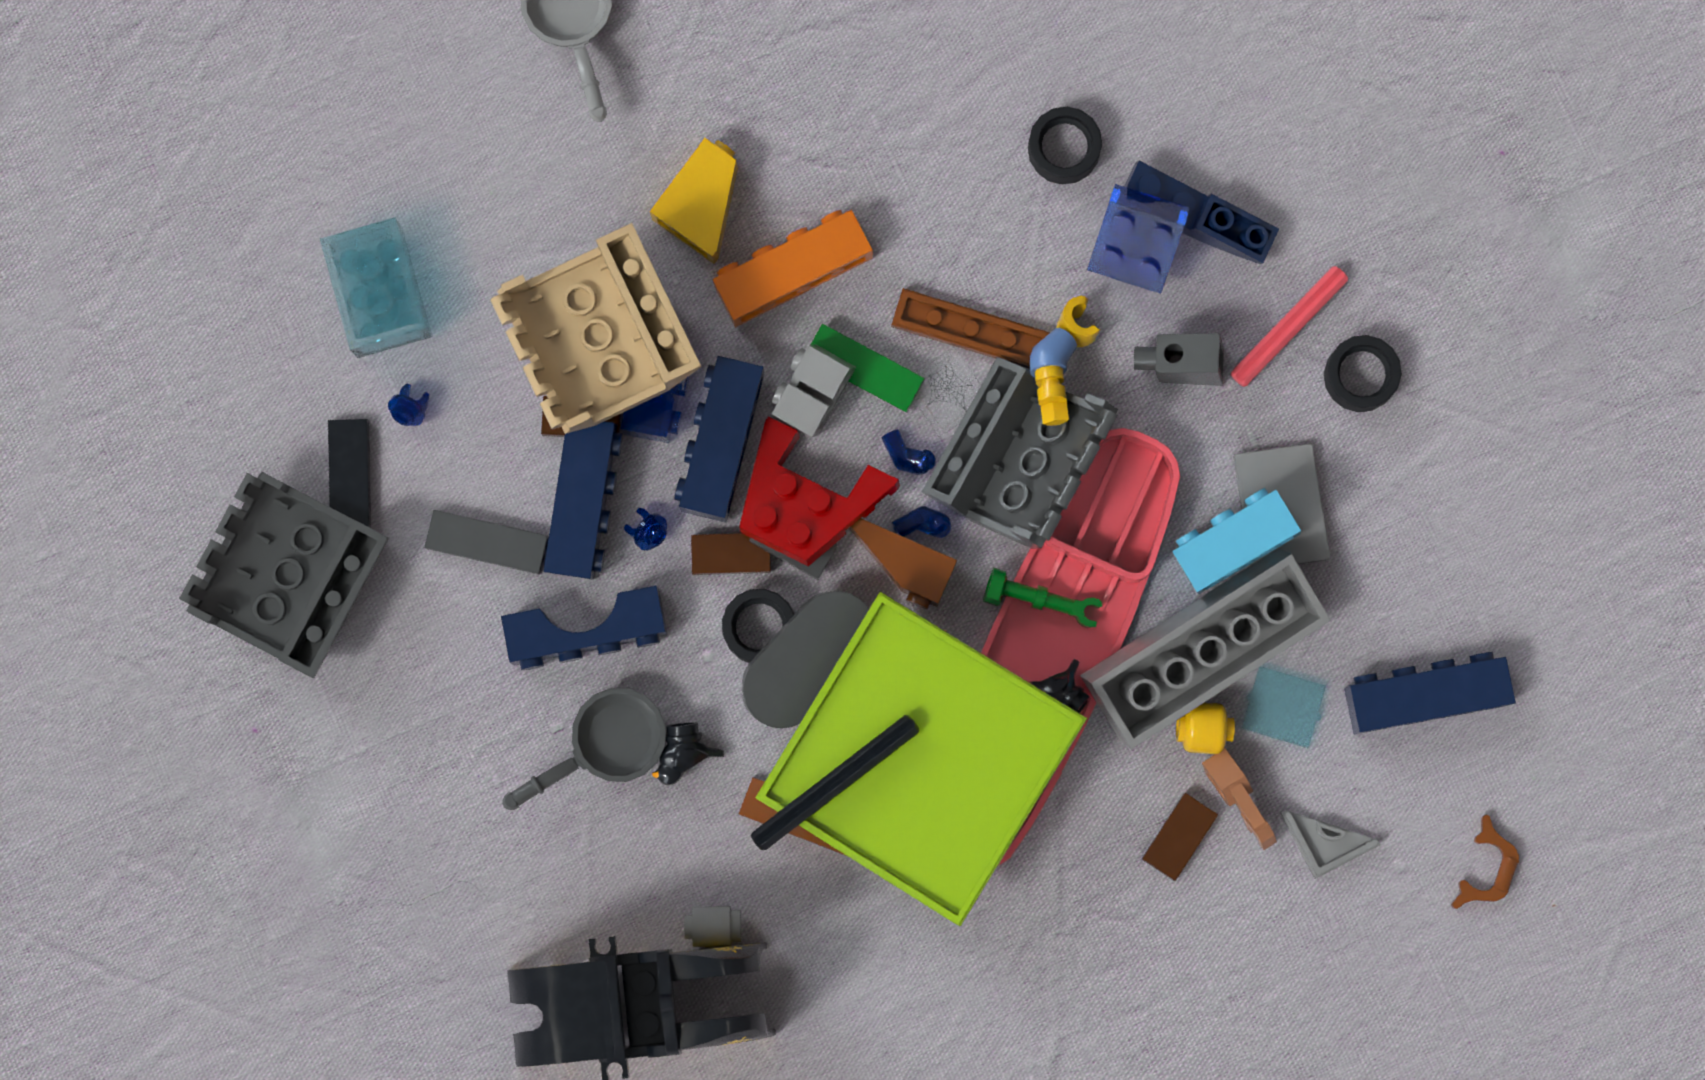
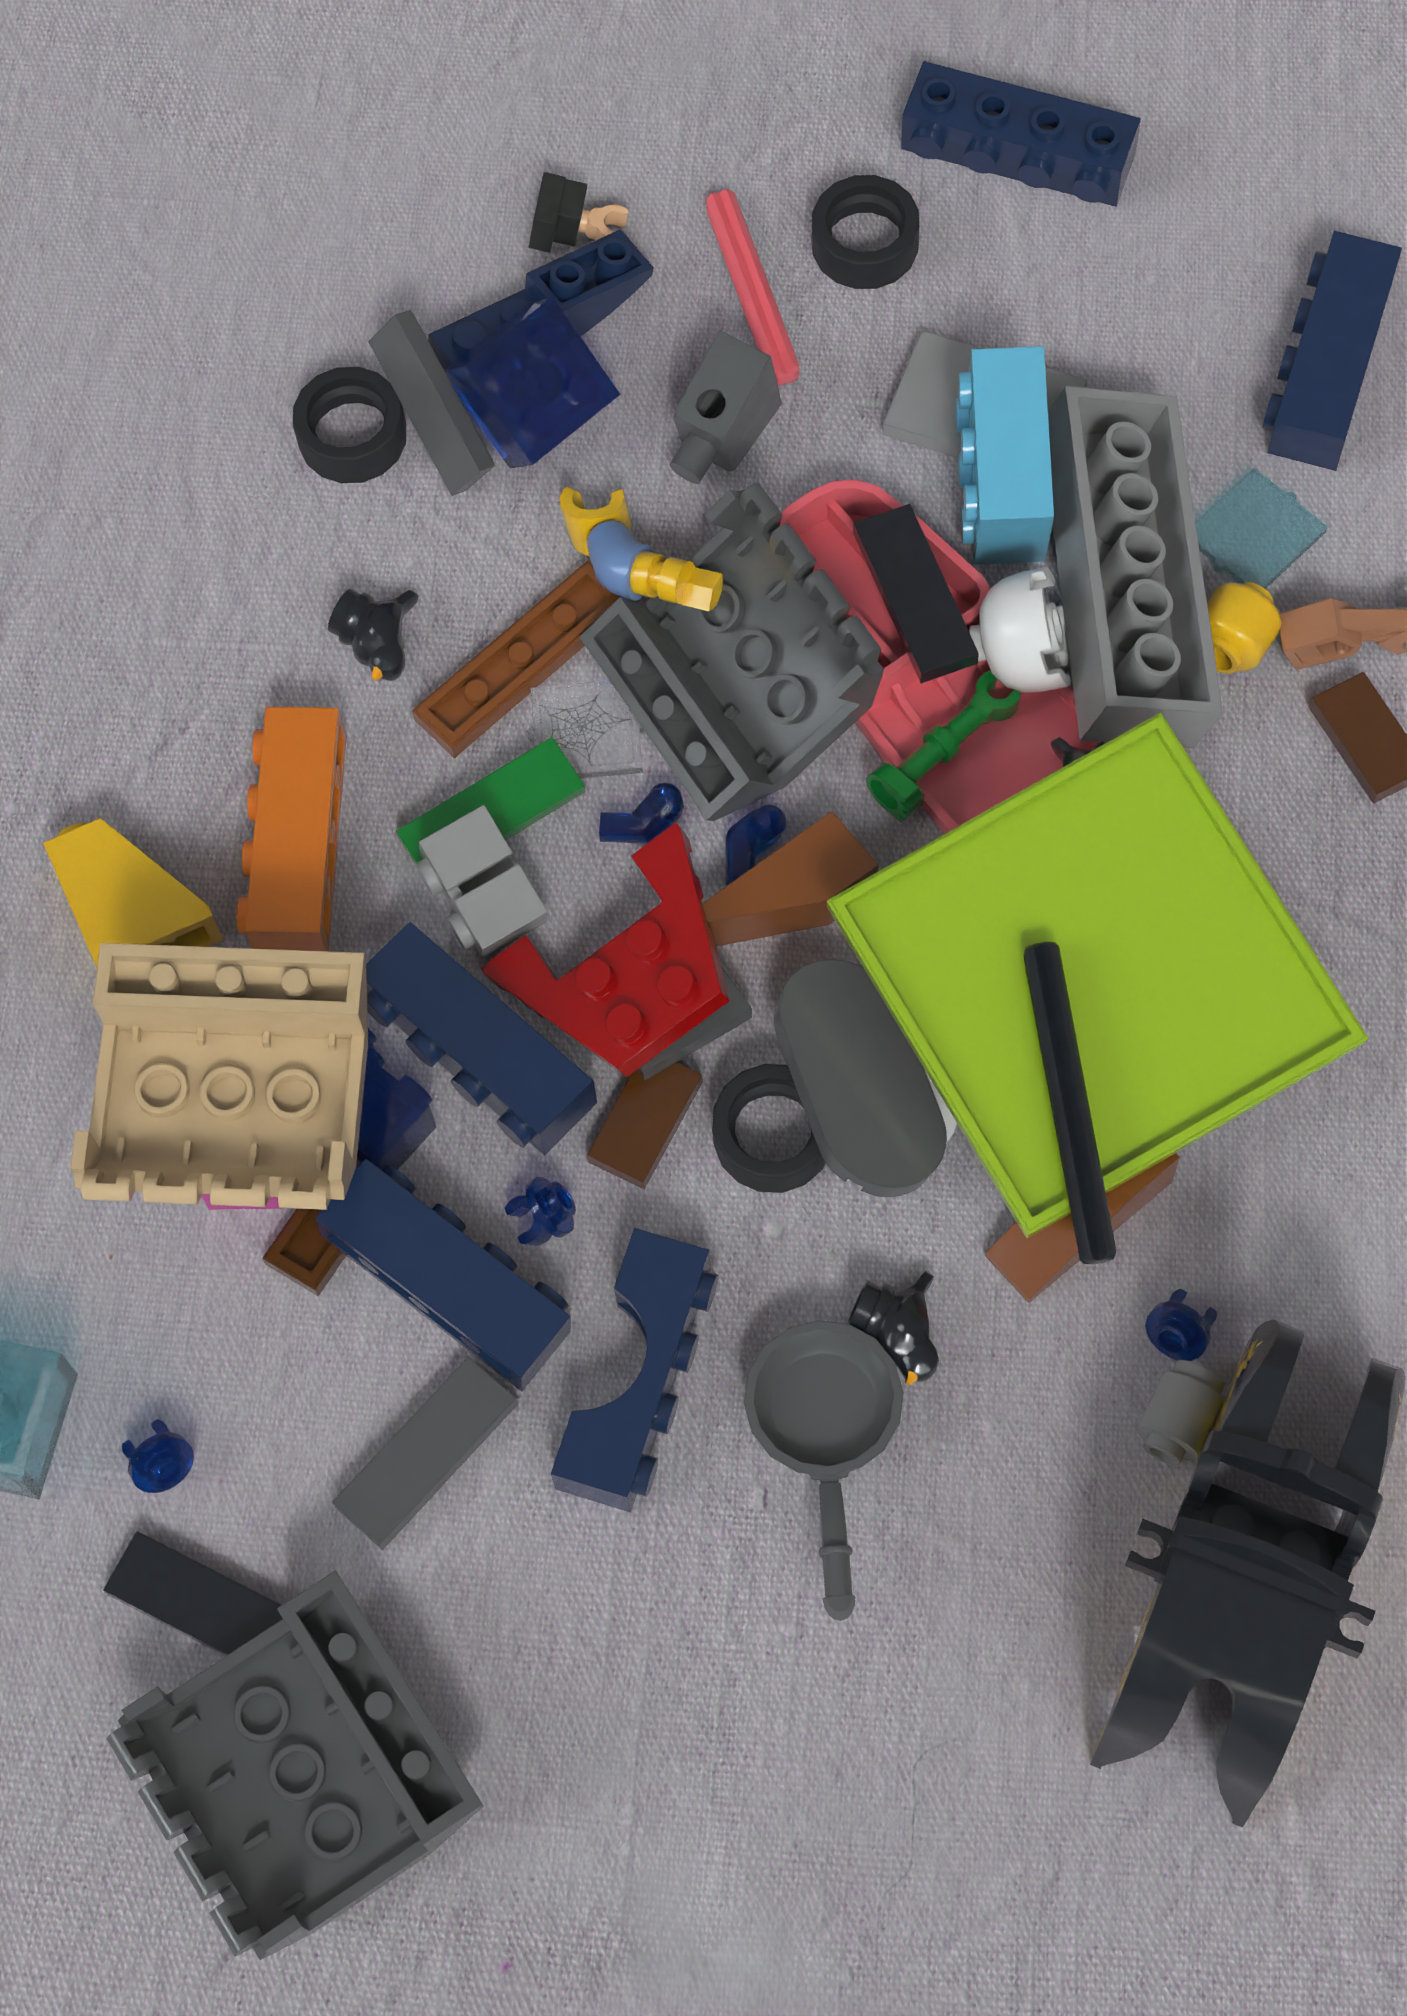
camera: 60 degrees left, 15 degrees down
(758, 901) = (1179, 1329): none -> clear blue plate
(938, 238) = (373, 630): none -> black animal
(1095, 188) = (431, 402): none -> dark grey tile
(1117, 535) = (915, 593): none -> black tile
(1126, 611) = (1023, 633): none -> white cylinder
(1274, 187) = (561, 214): none -> pearl dark grey piece
(1482, 430) = (1019, 133): none -> dark blue brick

